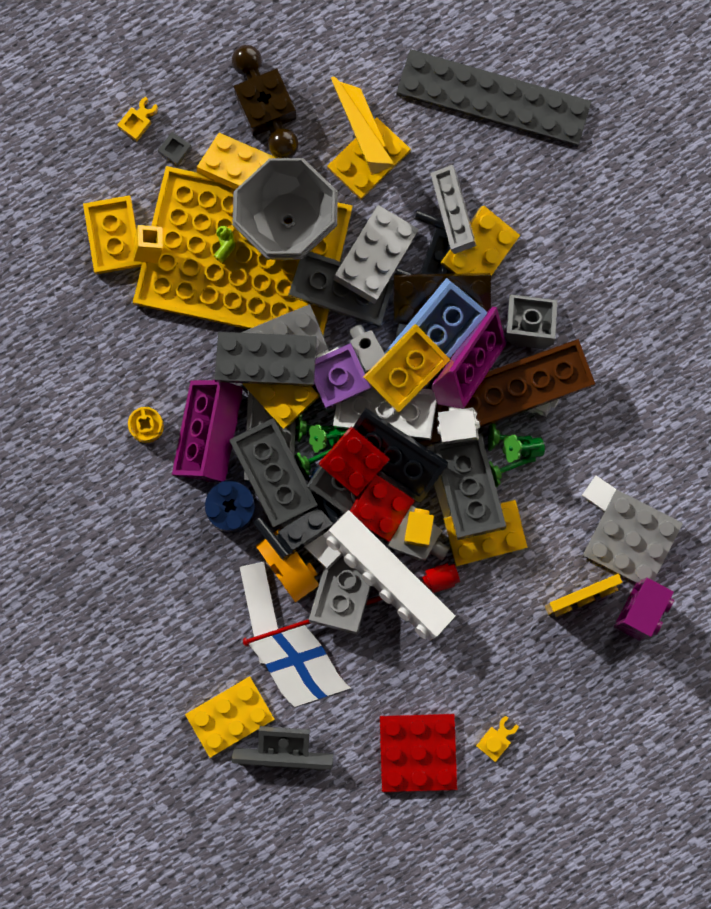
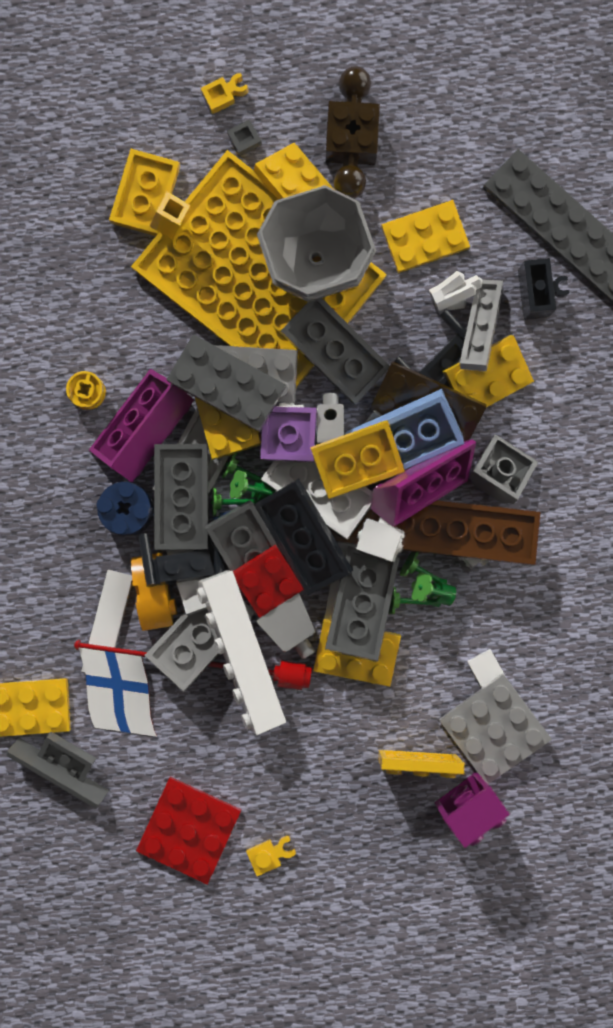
camera: 25 degrees right, 5 degrees up
(227, 243) = (247, 252): lime arm -> none
(354, 461) = (261, 525): red plate -> none
(363, 126) = (435, 202): yellow wedge -> none
(375, 254) = (384, 332): light grey plate -> none
(416, 193) = (454, 291): none -> white rock
(419, 528) = (293, 620): yellow brick -> none
(486, 157) = (539, 289): none -> black brick

